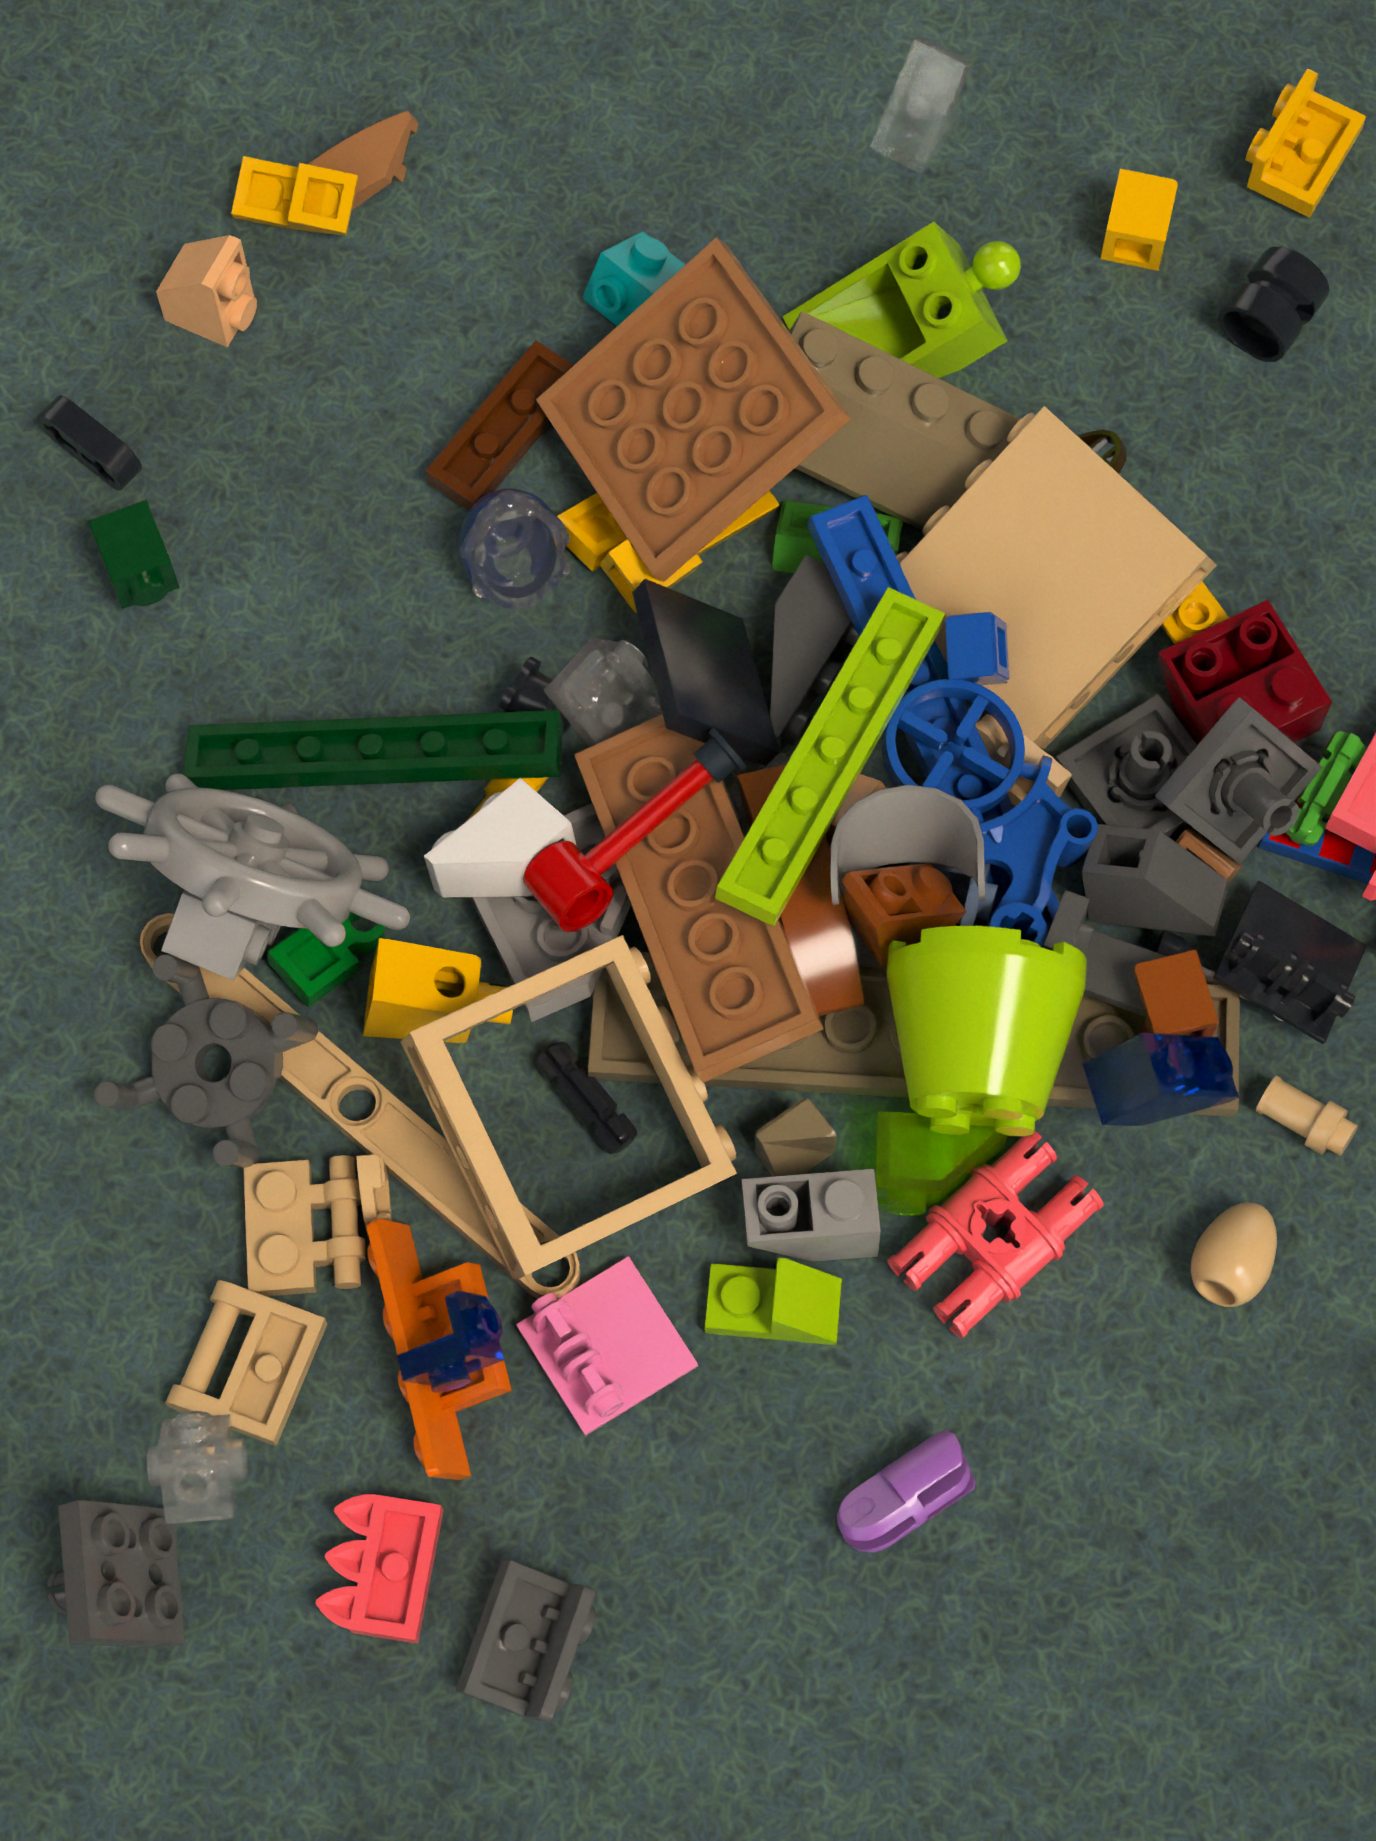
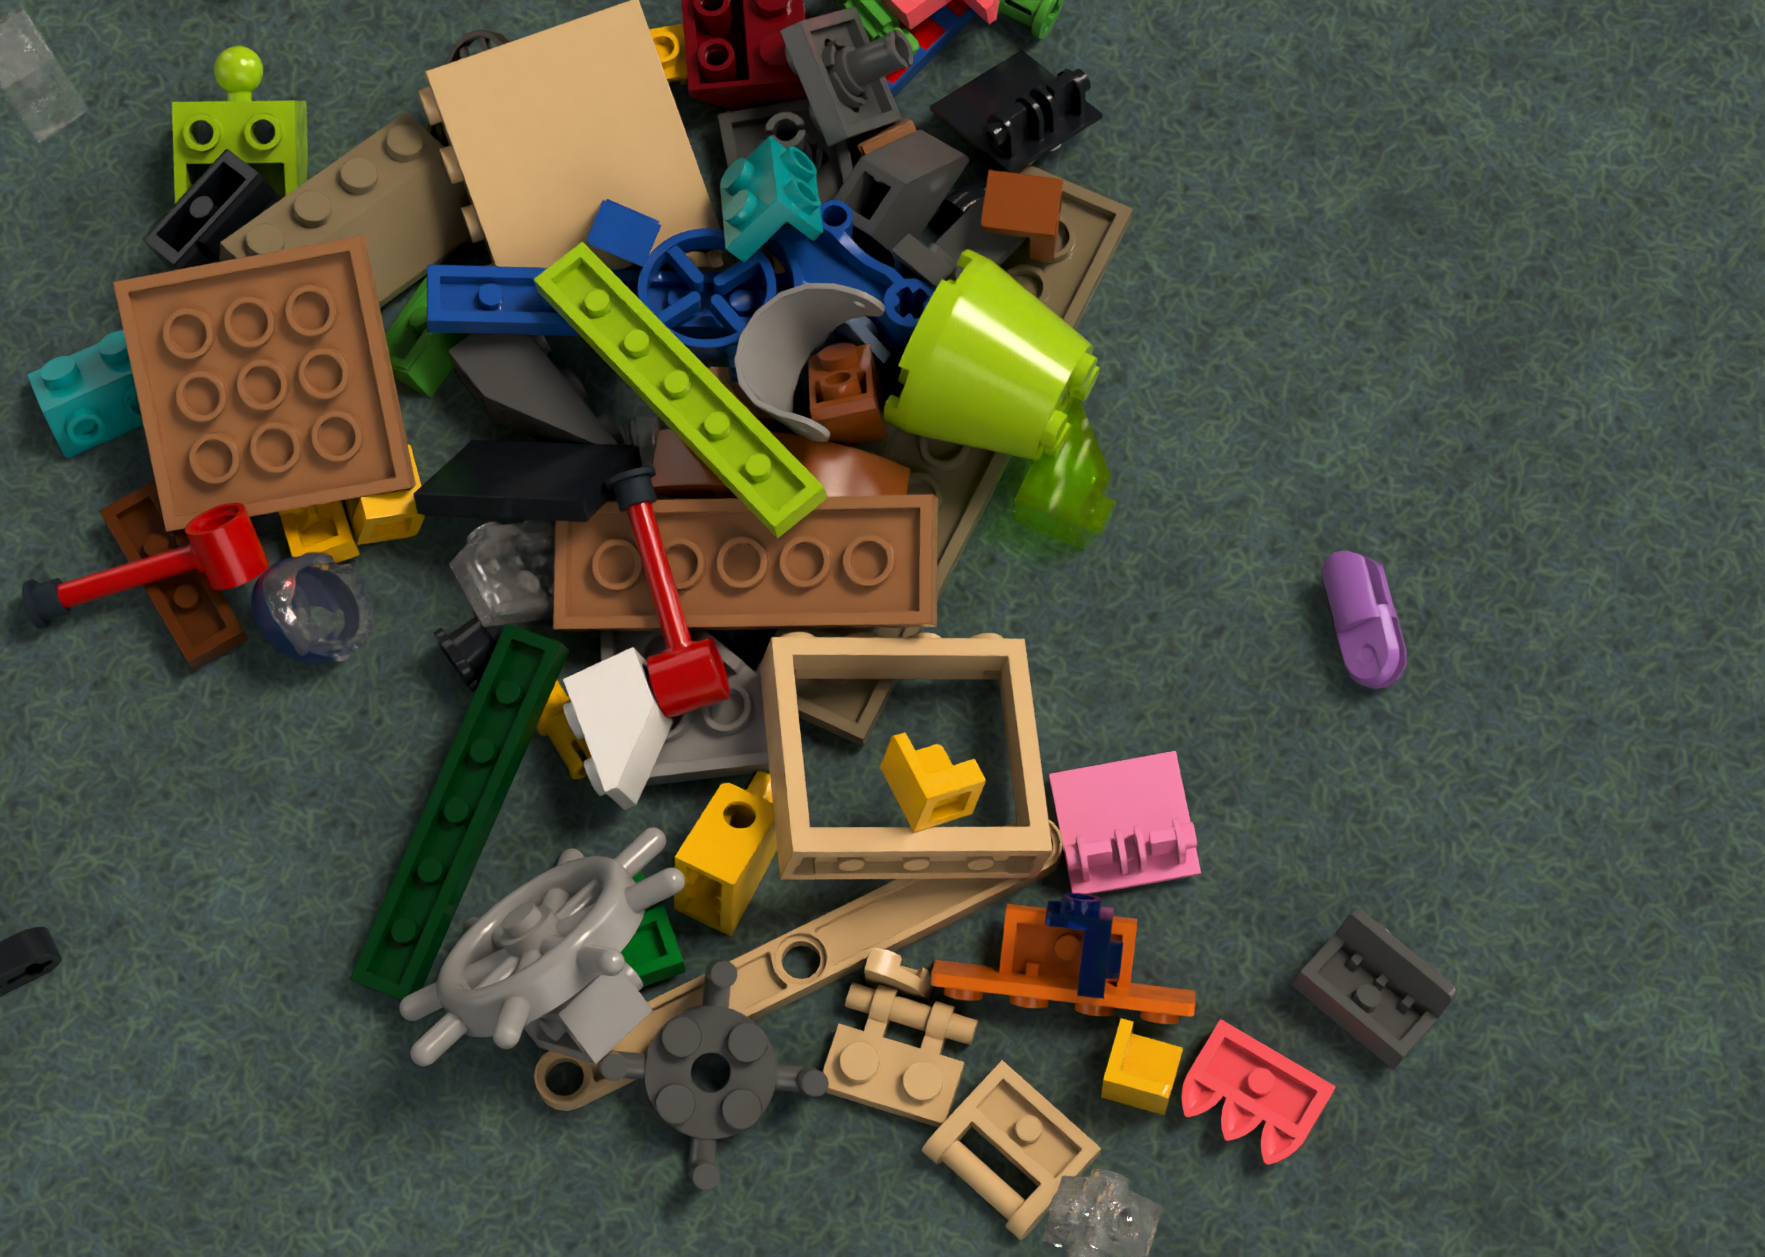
camera: 65 degrees left, 0 degrees up
(134, 555) = (148, 965): dark green brick -> none
(366, 1449) = (1140, 1070): none -> yellow panel
(534, 441) = (220, 547): none -> red piece
(534, 1132) = (928, 784): none -> yellow panel
(586, 1098) = (865, 759): black axle -> none
(774, 1303) = (1142, 669): lime slope -> none
(795, 1140) = (1003, 587): dark tan slope -> none
(814, 1215) = (1085, 589): light grey slope -> none
(844, 298) = (209, 212): none -> black brick
(998, 1266) = (1144, 476): coral pin -> none
(1072, 760) = (767, 192): none -> teal bracket
(1159, 1078) = (1086, 253): clear blue slope -> none
(1235, 1255) = (1261, 265): tan animal -> none
(1319, 1123) = (1171, 151): tan animal -> none

